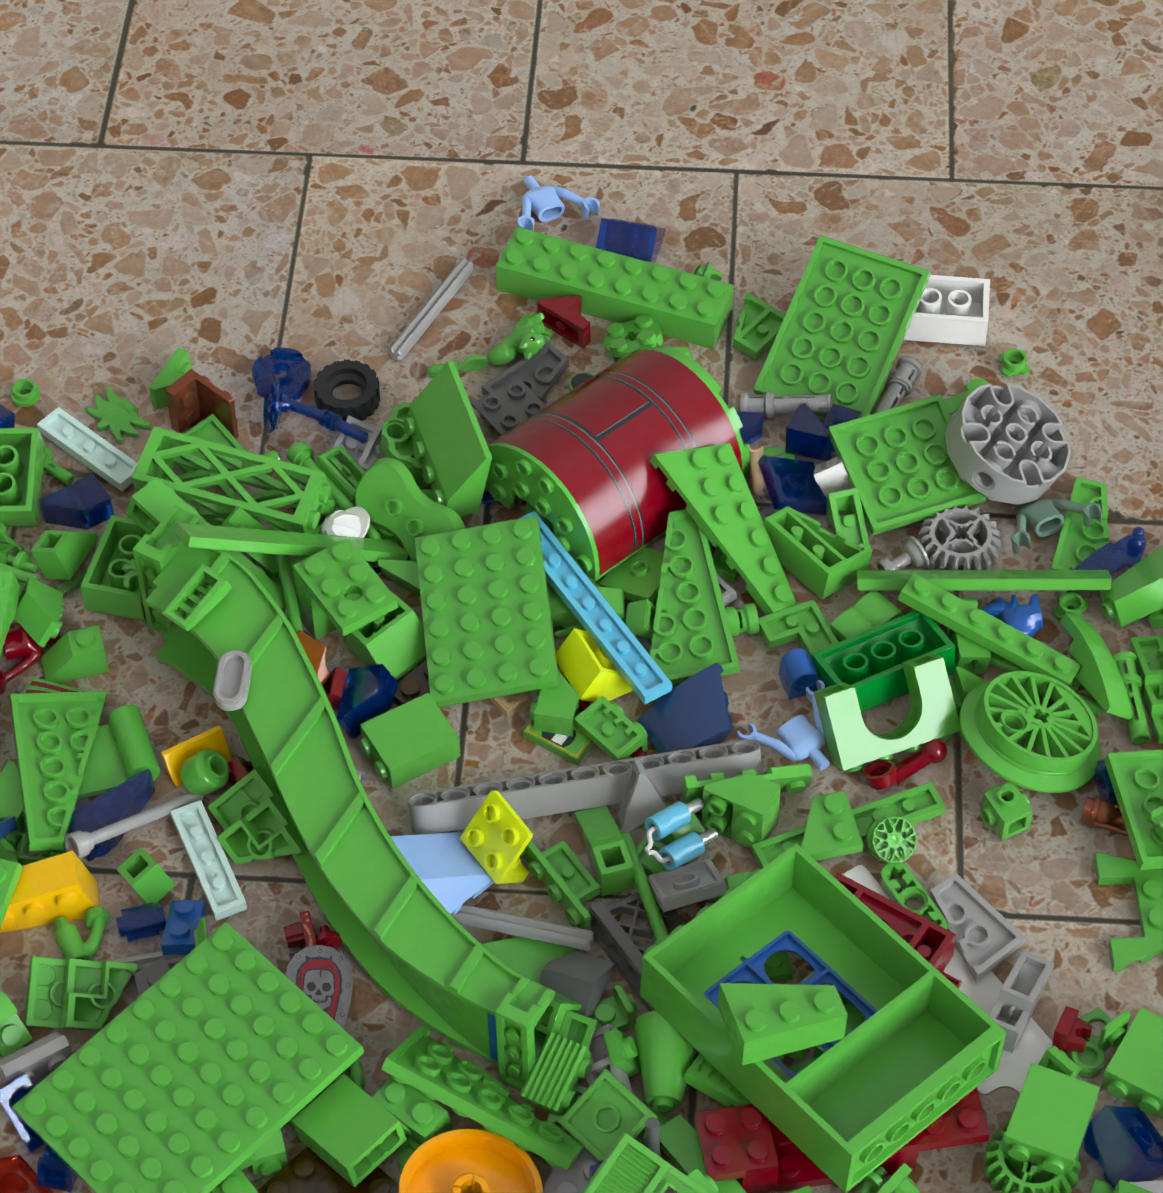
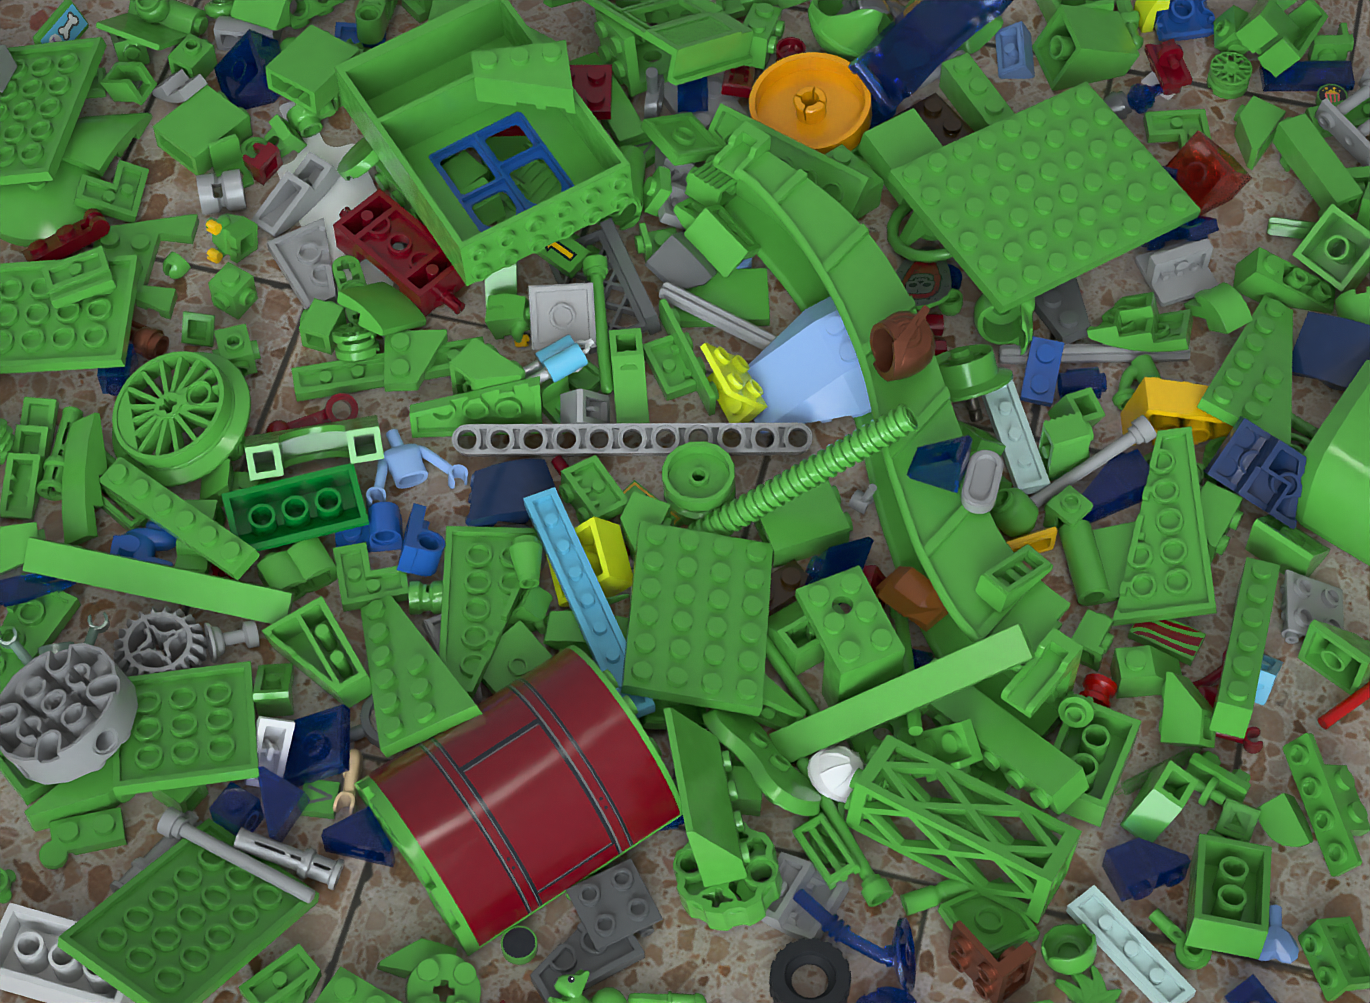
camera: 170 degrees left, 5 degrees up
(120, 631) = (1099, 688): none -> red wheel
(126, 677) = (1095, 638): none -> bright green brick
(135, 431) = (1069, 948): none -> bright green hair
(154, 779) = (1066, 508): none -> bright green bracket
(158, 832) = (1064, 444): none -> bright green brick
(258, 884) = (972, 373): none -> bright green piece
(270, 678) = (942, 463): none -> slope
(320, 786) = (902, 344): none -> copper helmet
(405, 707) = (809, 472): none -> bright green piece
(511, 744) = (698, 480): none -> bright green wheel
(654, 633) = (526, 559): none -> bright green cone
(765, 653) = (420, 547): none -> blue plate
(876, 860) = (382, 308): none -> bright green slope
(882, 401) = (175, 825): none -> light grey piece
(933, 858) = (318, 324): none -> bright green brick
(1036, 877) = (233, 290): none -> bright green brick
(1057, 842) = (198, 329): none -> bright green slope
(1067, 939) = (232, 236): none -> bright green piece
(1101, 984) = (232, 190): none -> light grey wheel
(1107, 912) = (175, 266): none -> bright green hinge

